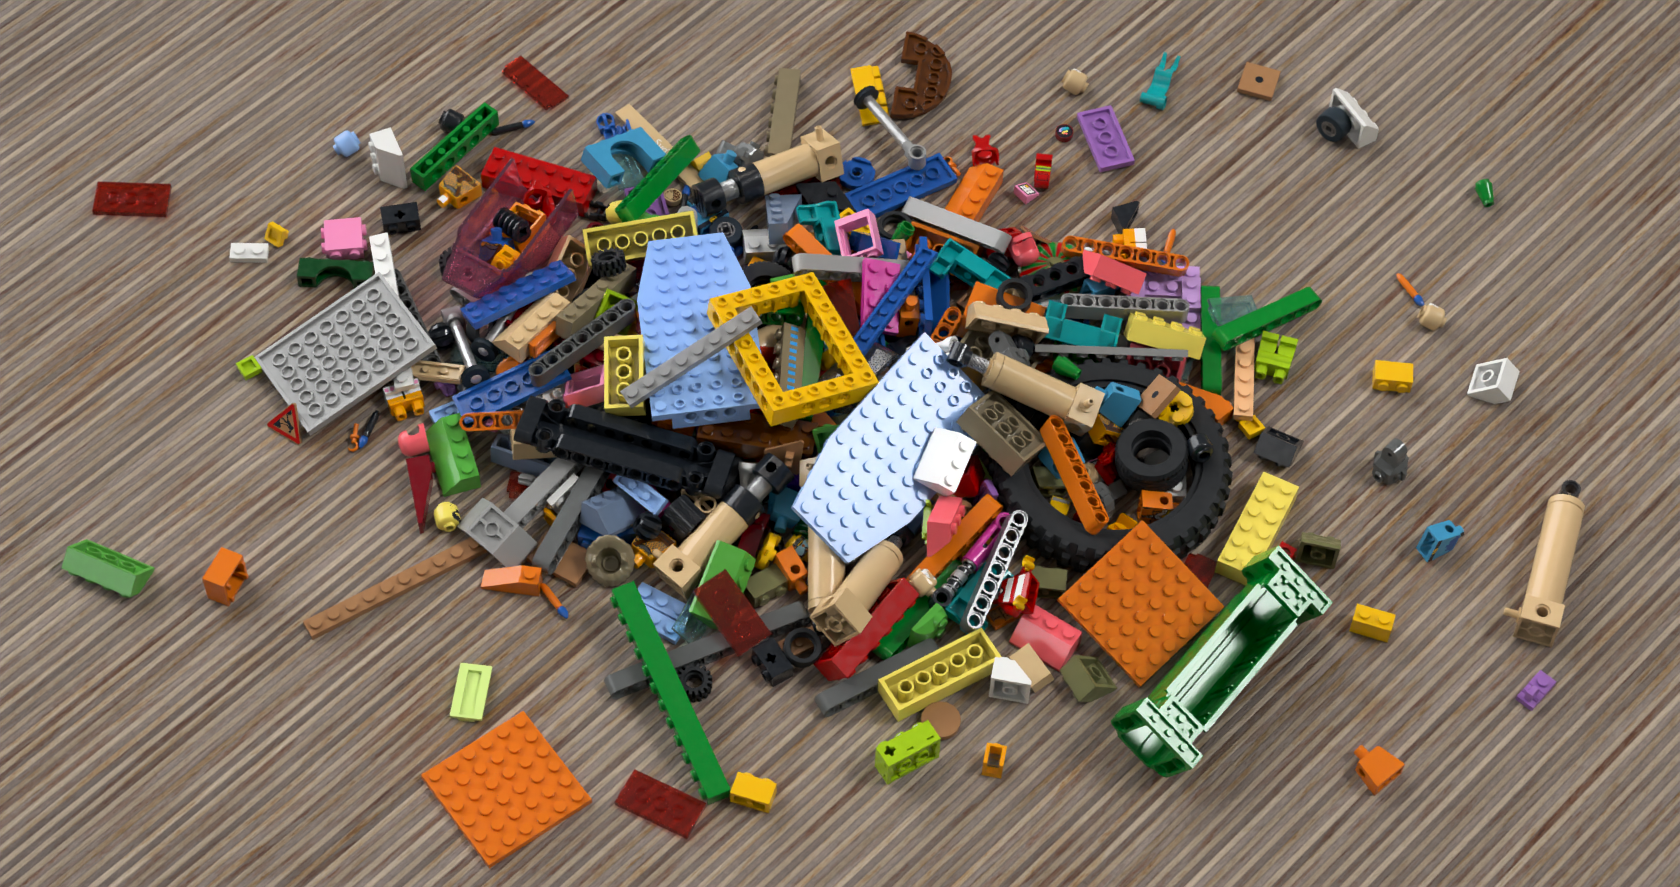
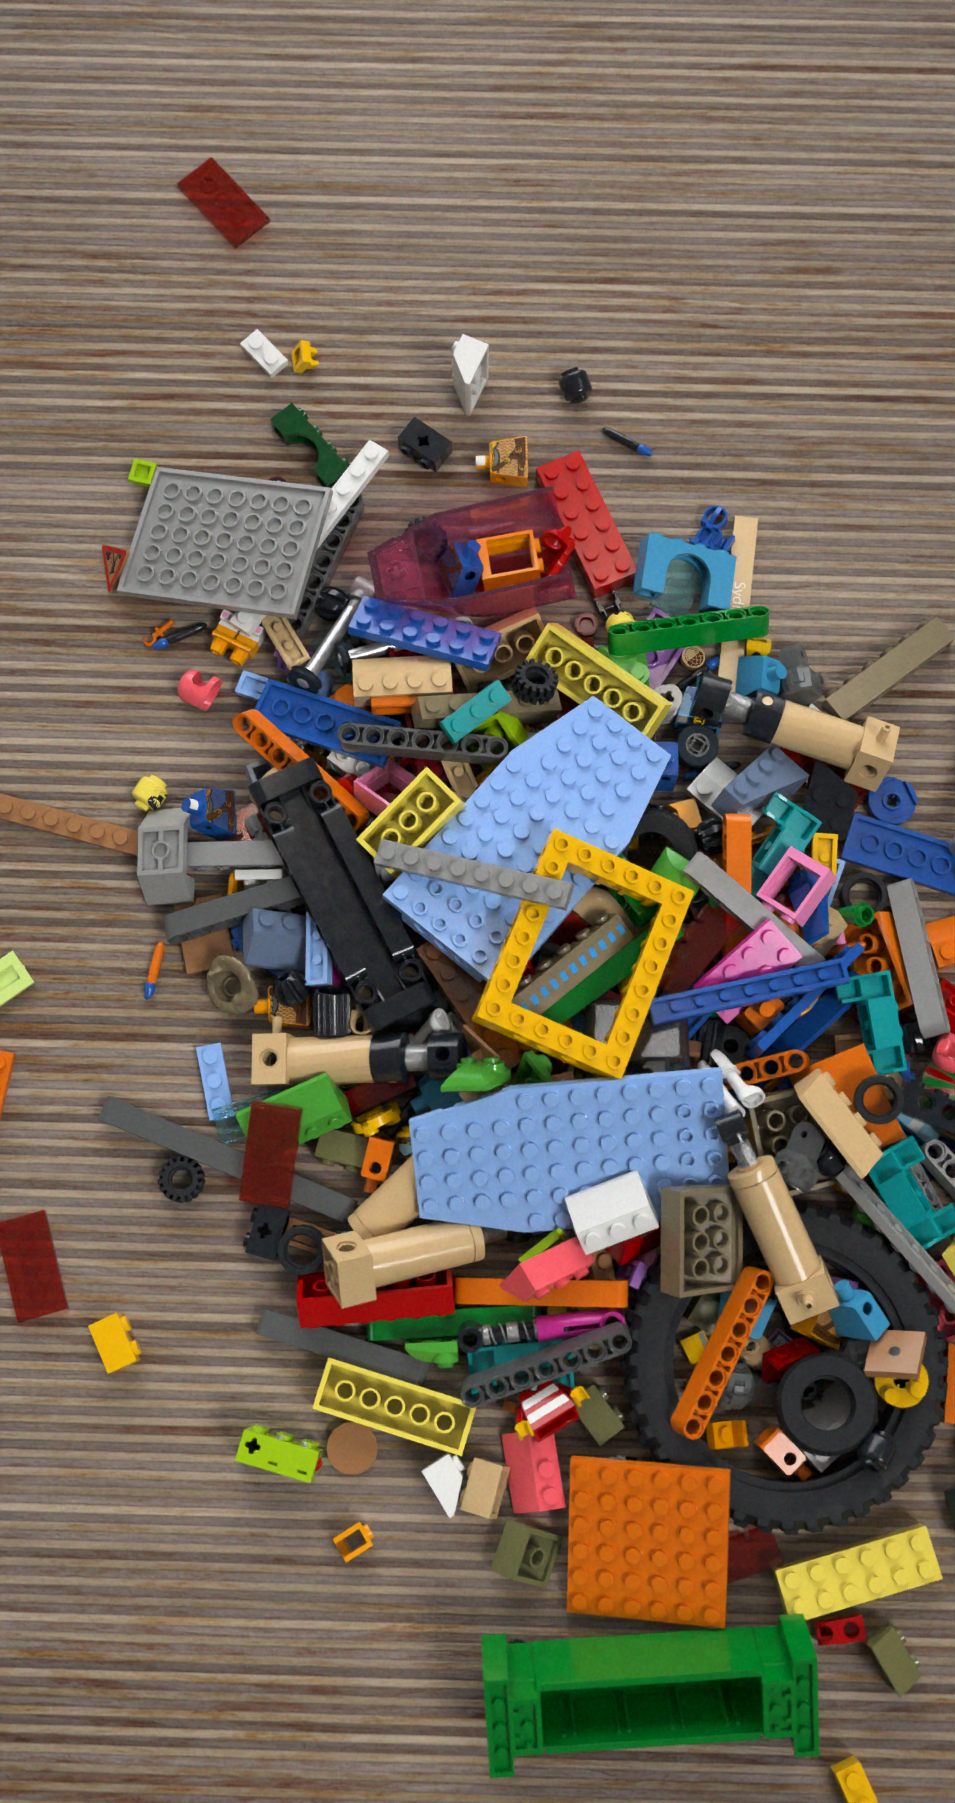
camera: 50 degrees right, 20 degrees up
(344, 239) = (351, 419): bright pink brick -> none
(346, 143) = (459, 319): light blue head -> none
(421, 482) = (163, 736): dark red slope -> none
(452, 456) = (214, 739): bright green slope -> none
(454, 146) = (548, 414): green brick -> none
(494, 485) = (212, 812): none -> torso
(505, 257) = (449, 585): light orange window -> none
(512, 225) = (495, 554): black piece -> none
(514, 579) = (138, 914): orange slope -> none
(534, 83) = (695, 413): clear red windscreen -> none
(595, 297) = (475, 711): none -> teal plate
(660, 601) = (239, 1065): light blue plate -> none
(670, 693) = (139, 1174): green brick -> none
(806, 449) = (477, 1075): none -> bright green slope
(923, 582) = (472, 1303): tan head -> none
(1066, 368) = (842, 1230): green cone -> none

